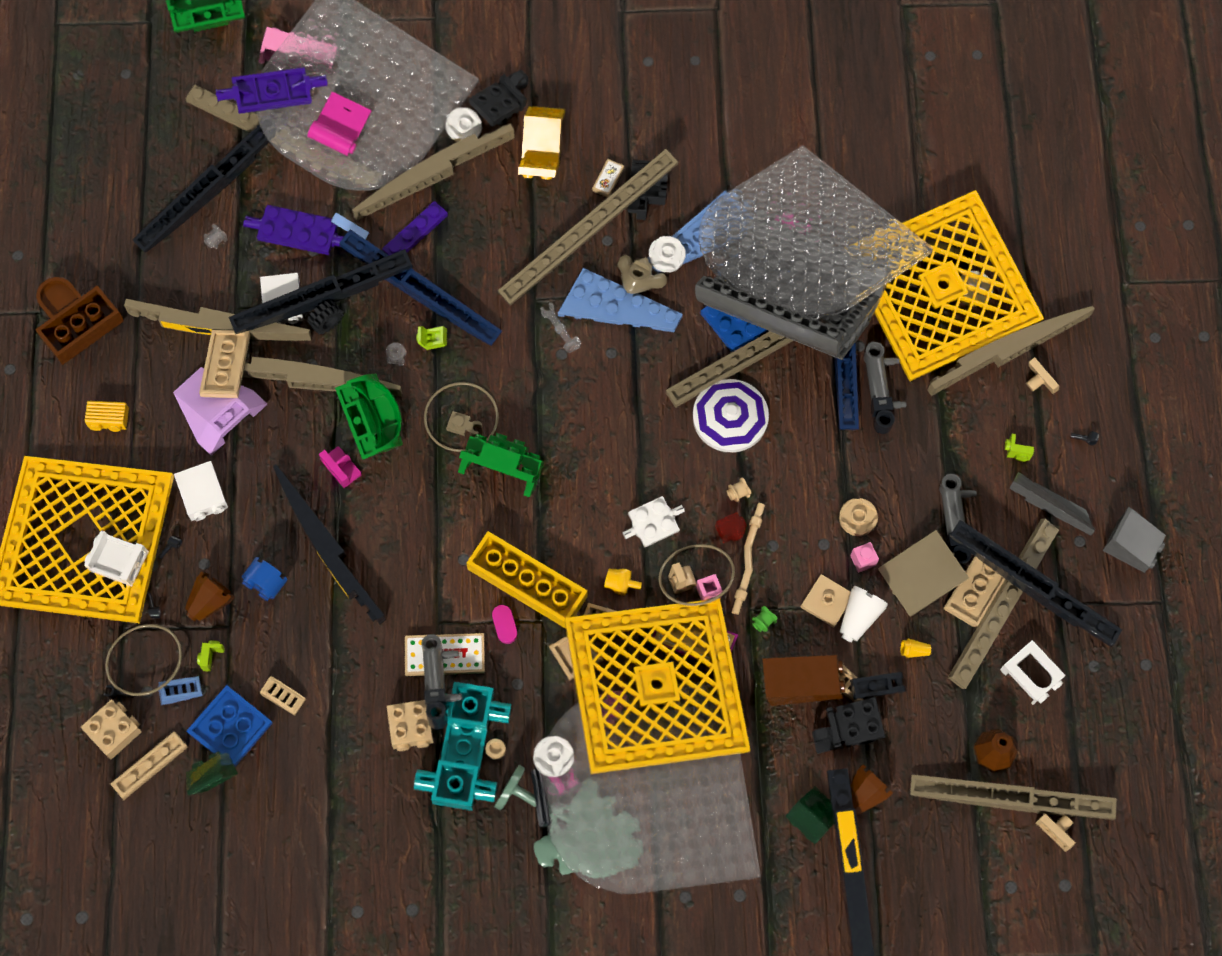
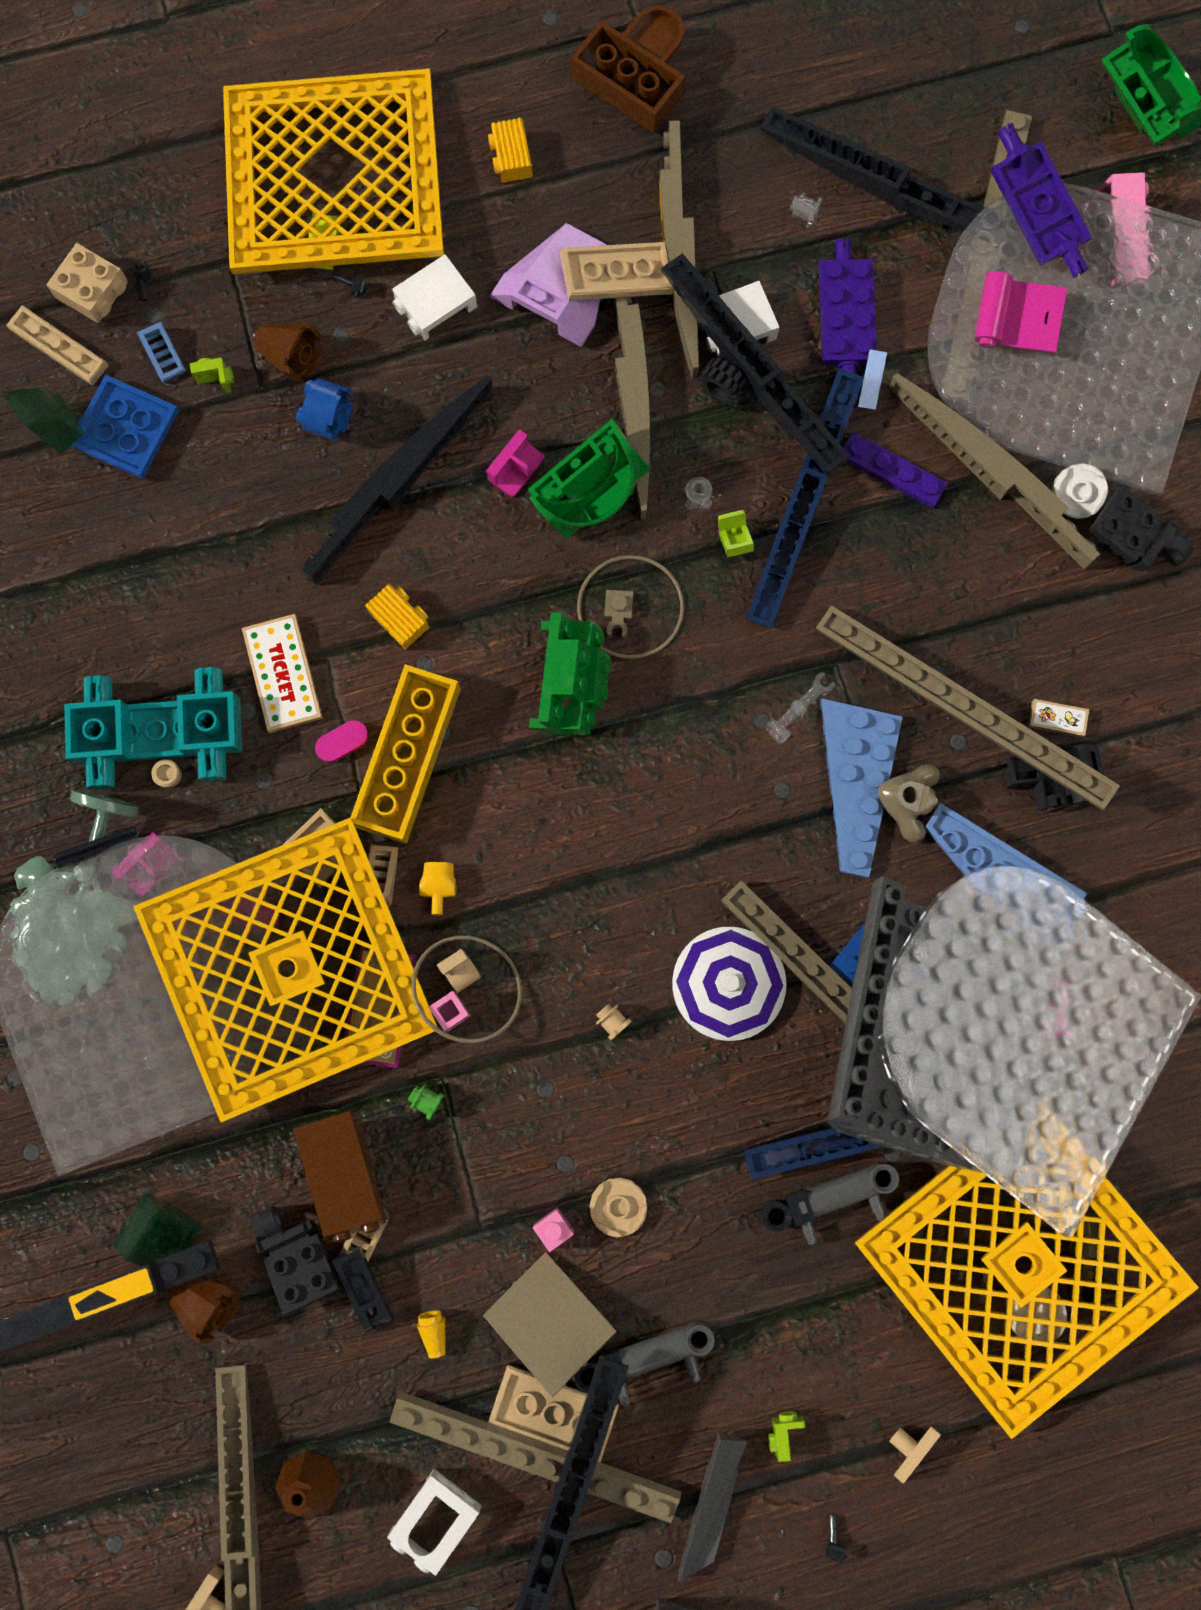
camera: 80 degrees right, 10 degrees up
(116, 558) = (305, 215): white panel -> none
(128, 631) = (194, 338): dark tan piece -> none
(154, 612) = (258, 288): black hand -> none
(279, 685) = (177, 458): tan slope -> none
(409, 725) = (168, 651): tan brick -> none
(426, 566) = (398, 616): none -> yellow brick
(434, 680) = (200, 671): dark grey piece -> none
(541, 142) = (1081, 604): bracket -> none
(553, 756) = (150, 850): white tile -> none
(653, 521) = (538, 910): white plate -> none
(667, 254) = (955, 831): white tile -> none
(731, 528) = (553, 1023): clear red brick -> none
(741, 593) = (458, 1059): tan bar -> none
(826, 600) = (478, 1187): tan plate -> none
(860, 613) = (465, 1241): white cone -> none
(1008, 348) = (950, 1389): dark tan slope -> none

